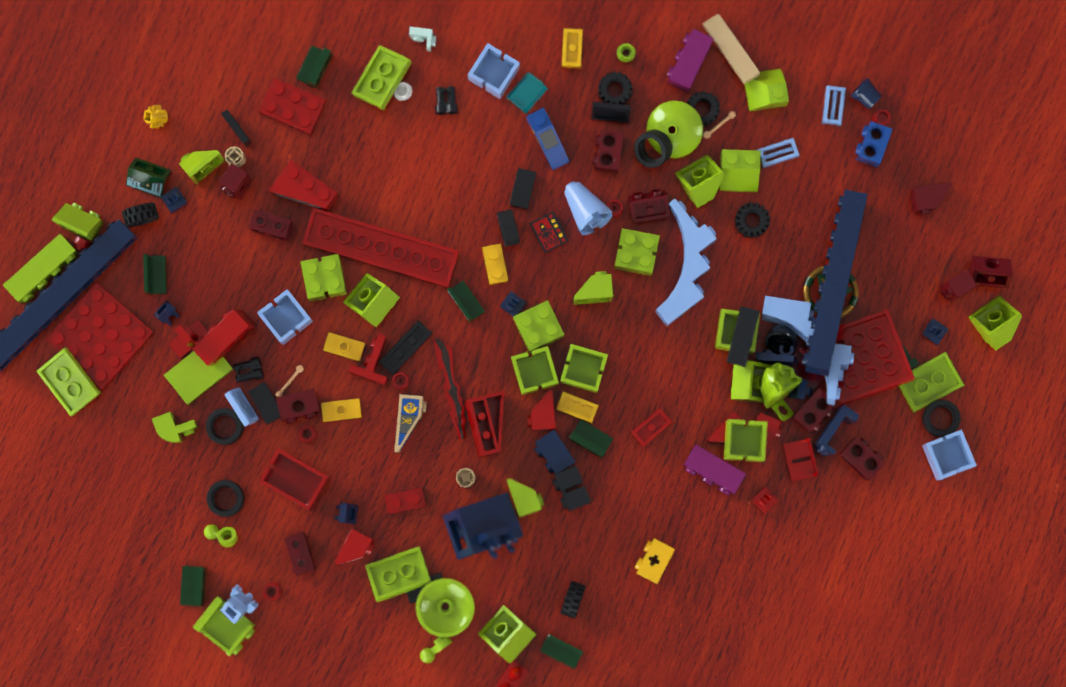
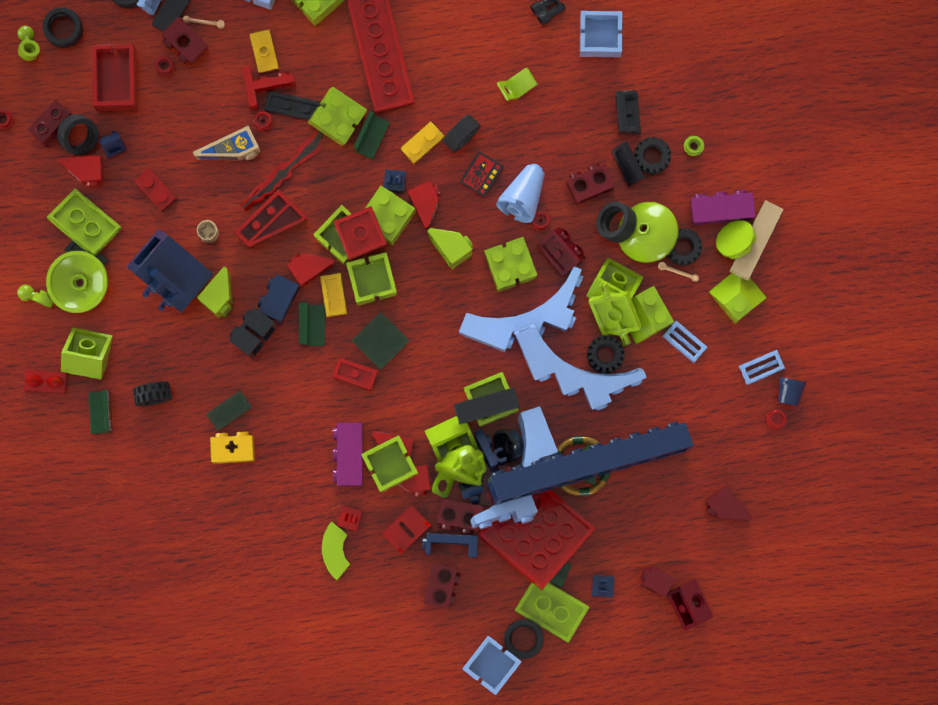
camera: 60 degrees right, 0 degrees up
(313, 542) = (89, 142): none -> black tyre
(341, 410) = (204, 83): yellow plate -> none
(371, 299) = (321, 50): lime slope -> none
(435, 317) = (337, 116): none -> lime piece
(494, 160) = (518, 85): none -> lime bracket
(522, 189) = (508, 126): black tile -> none
(527, 92) = (601, 77): teal piece -> none
(543, 355) = (360, 233): none -> red tile
(544, 289) = (425, 202): none -> red slope
(547, 138) = (568, 121): slope -> none
(568, 88) = (627, 112): none -> black hinge
(572, 48) = (667, 93): yellow plate -> none
(621, 545) = (229, 410): none -> clear green plate
(636, 391) = (380, 340): none -> clear green plate
(722, 64) = (736, 239): none -> lime tile
(726, 192) = (615, 313): none -> lime plate
(757, 259) = (569, 378): none -> light blue arch
(783, 528) = (333, 550): none -> lime tile
(876, 145) = (747, 429): blue brick -> none
(996, 322) = (646, 638): lime slope -> none

